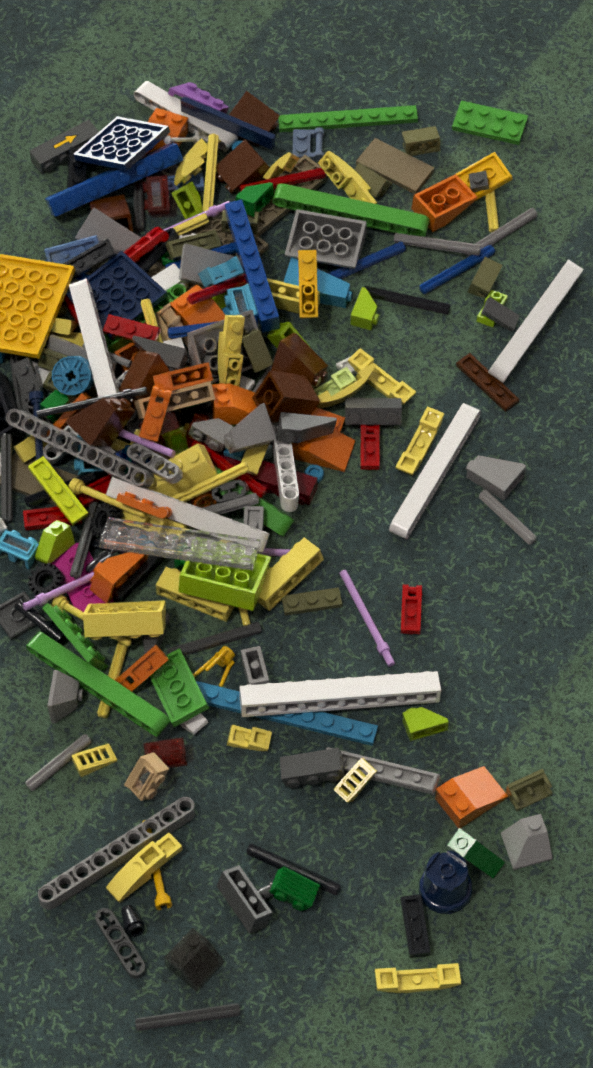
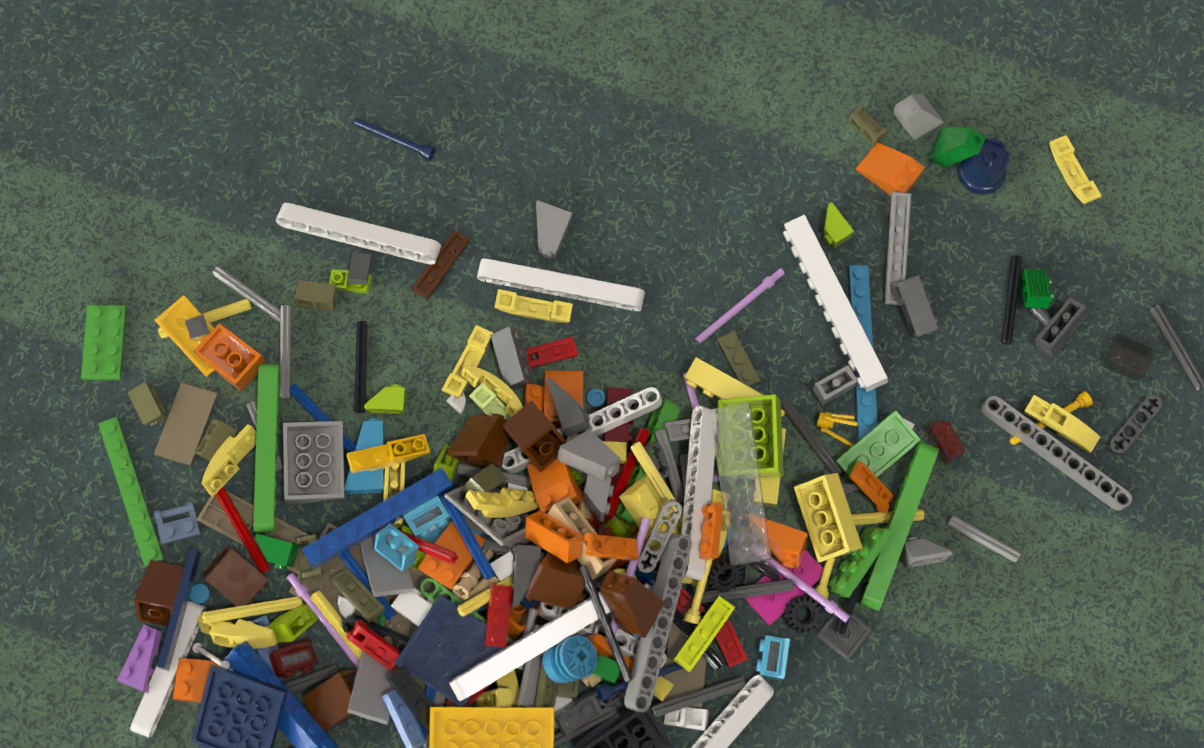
camera: 110 degrees left, 15 degrees up
(54, 542) = (760, 621): lime slope -> none
(96, 765) = (964, 511): light yellow slope -> none
(132, 921) = (1114, 419): black cone -> none
(147, 776) = (981, 445): tan window -> none
(253, 739) = (899, 374): light yellow slope -> none
(285, 163) = (223, 533): light yellow slope -> none
(343, 792) = (925, 271): light yellow slope -> none
(411, 609) = (719, 268): red plate -> none
(415, 926) = (1027, 185): black plate -> none
(456, 269) = (312, 329): blue axle -> none
(507, 517) = (591, 209): light grey axle -> none

